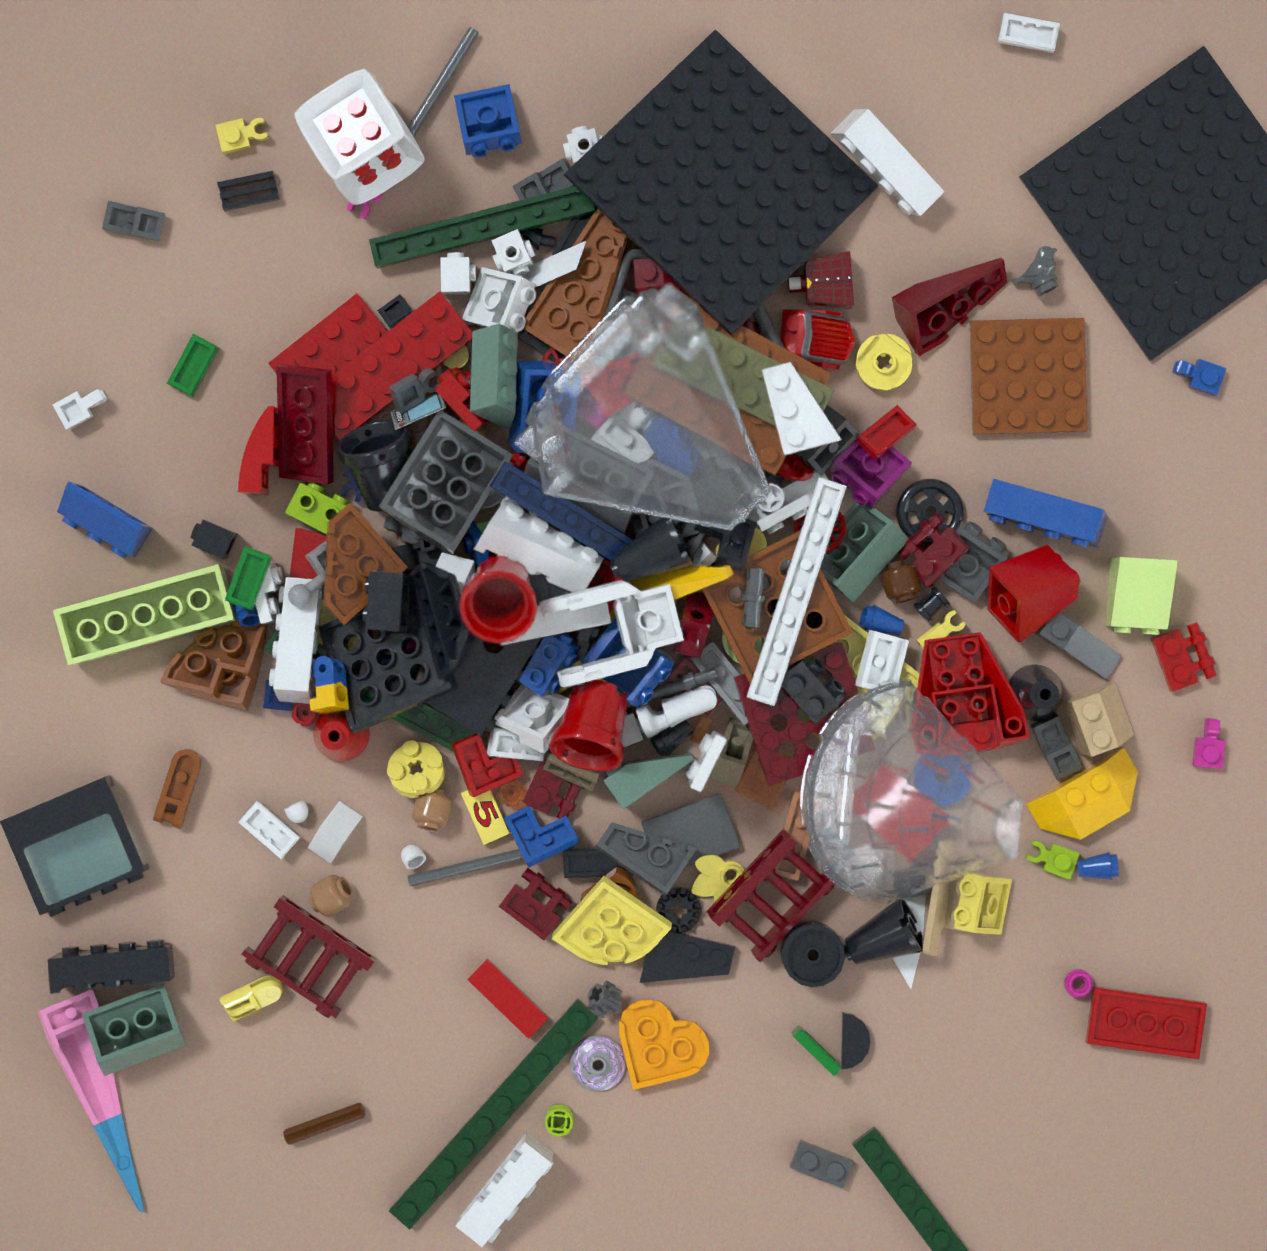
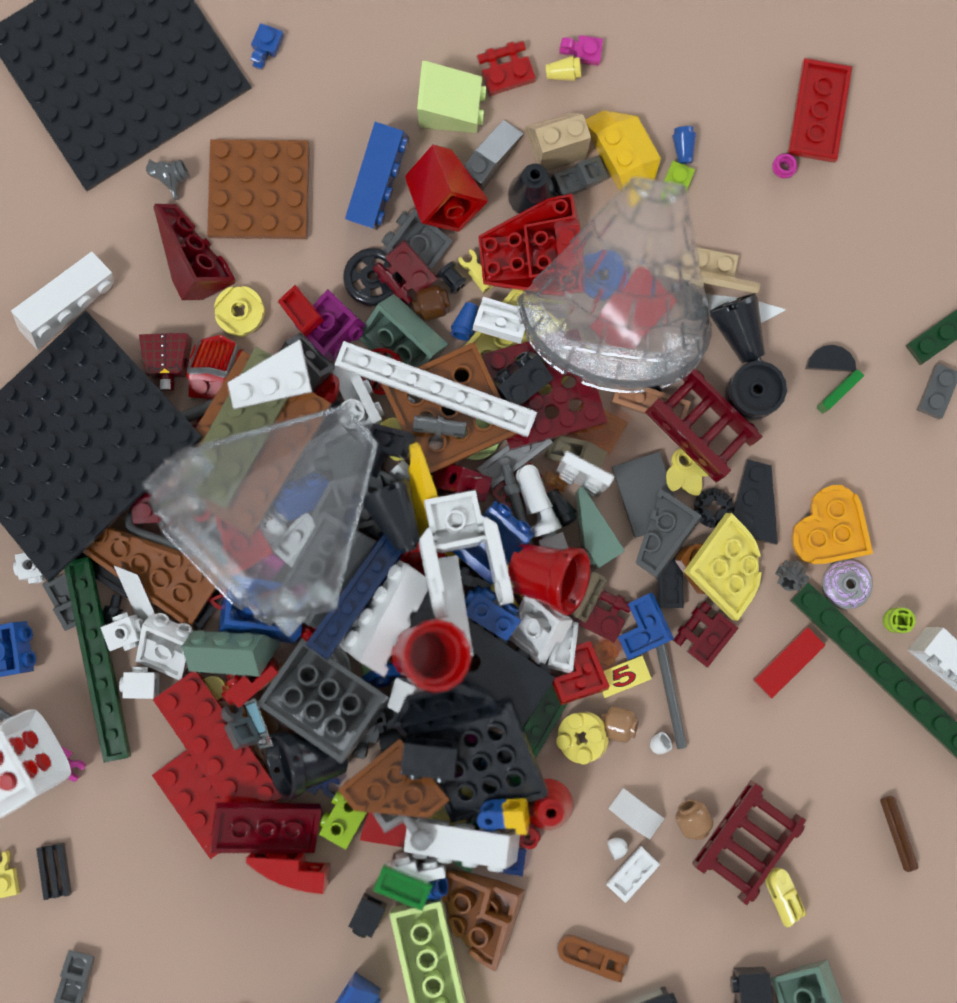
camera: 90 degrees left, 5 degrees down
(193, 365) = (209, 928): green tile -> none
(395, 311) = (170, 741): black slope -> none
(982, 903) = (717, 242): light yellow plate -> none
(1183, 725) = (564, 69): none -> light yellow cone

